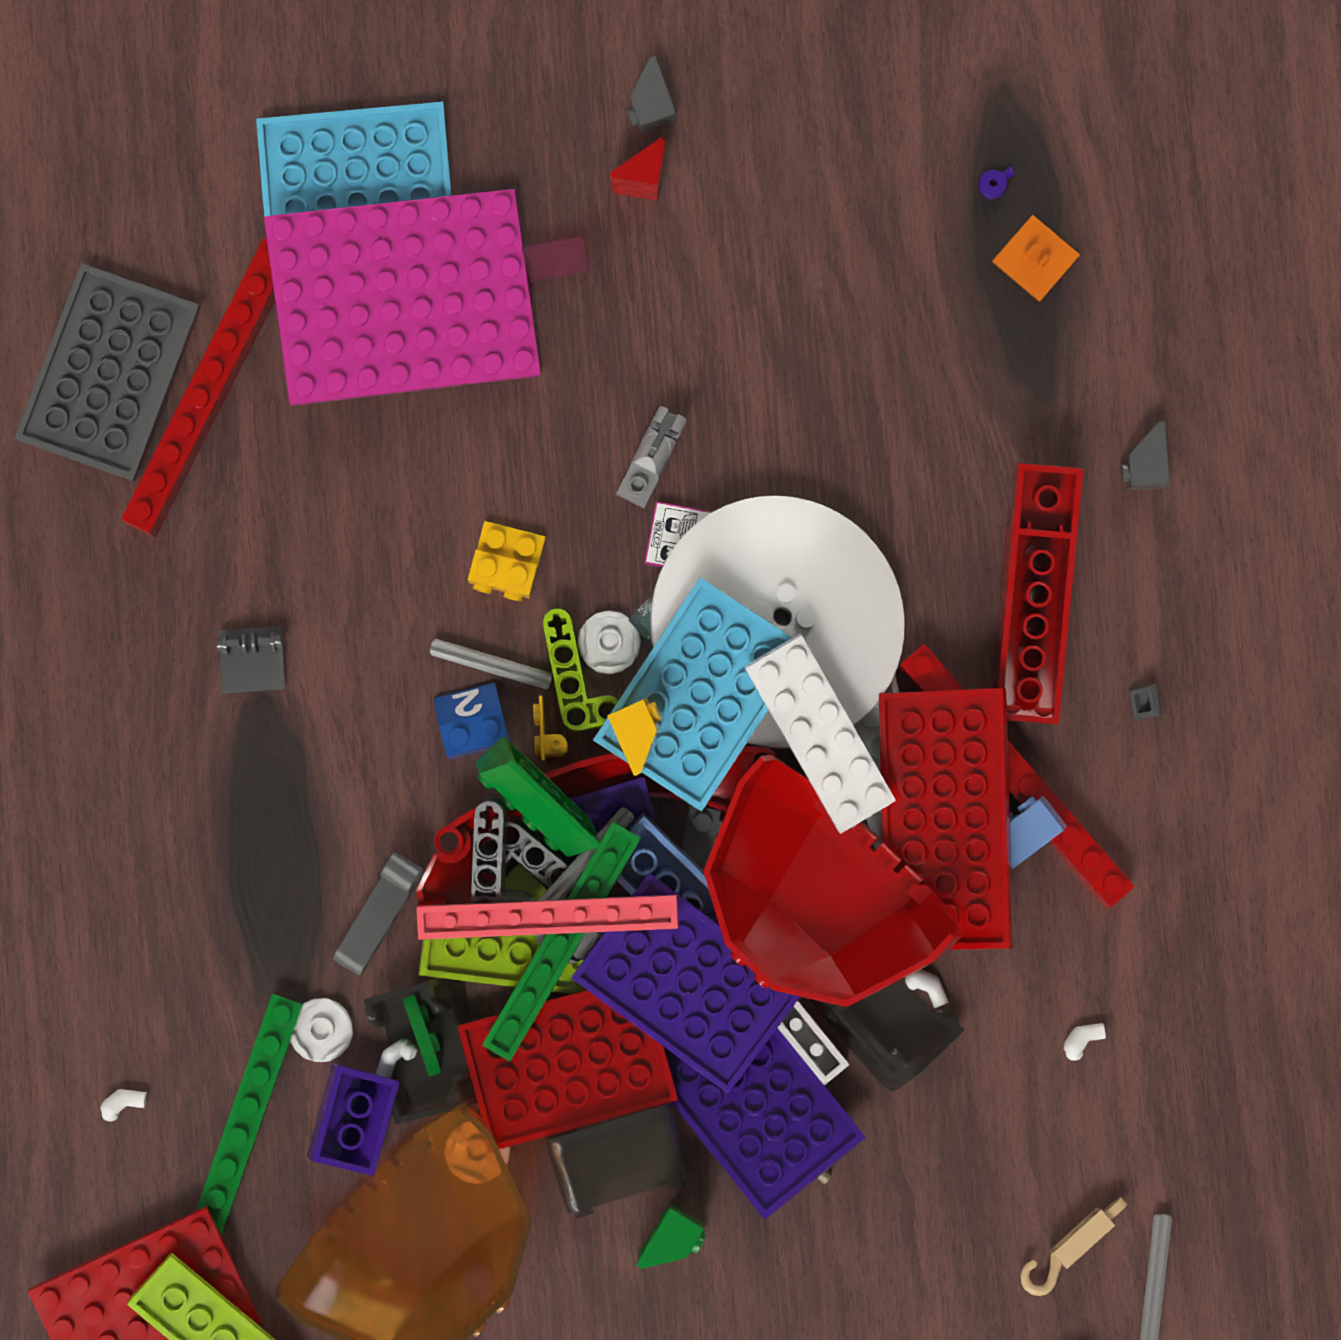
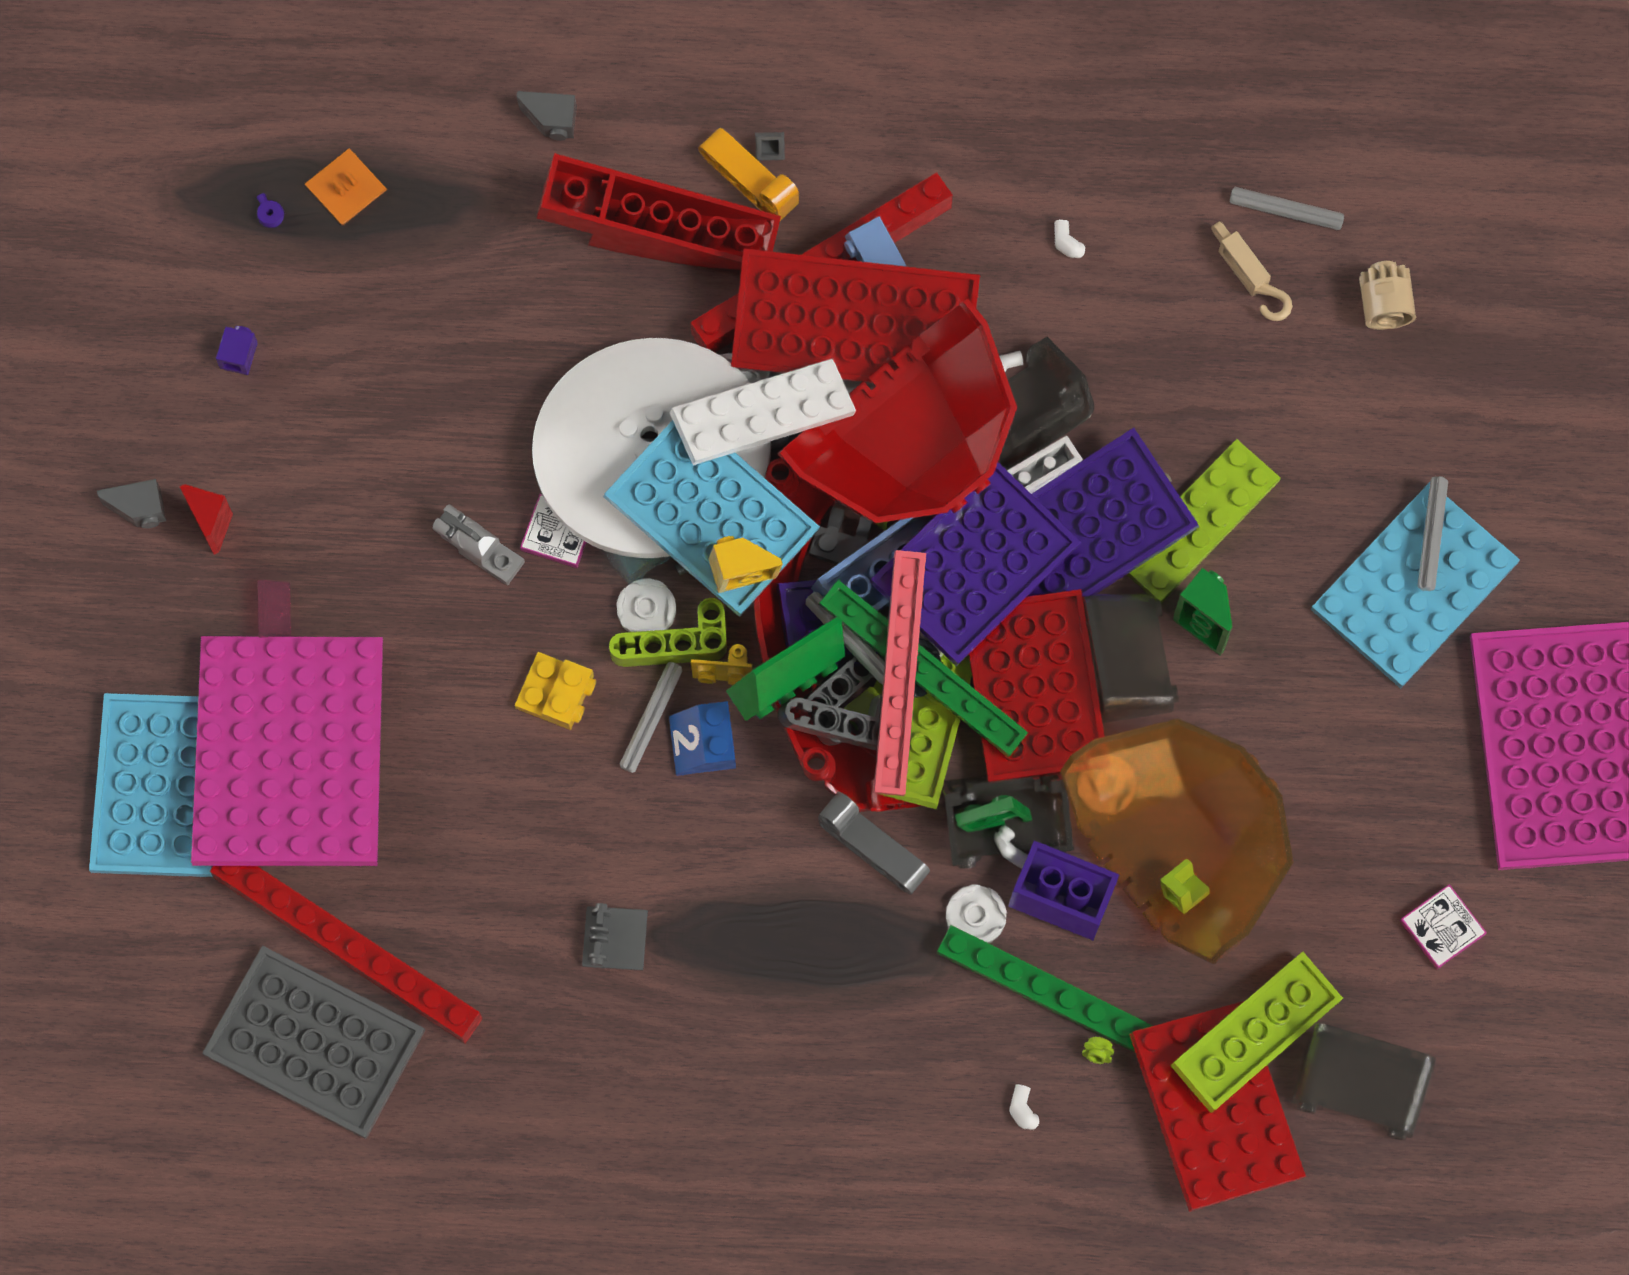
camera: 80 degrees left, 10 degrees down
(189, 1174) = (1098, 1050): none -> lime plate
(368, 1247) = (1183, 887): none -> lime panel
(797, 1233) = (1218, 504): none -> lime plate
(834, 174) = (237, 350): none -> dark purple brick
(1107, 684) = (749, 175): none -> light orange beam

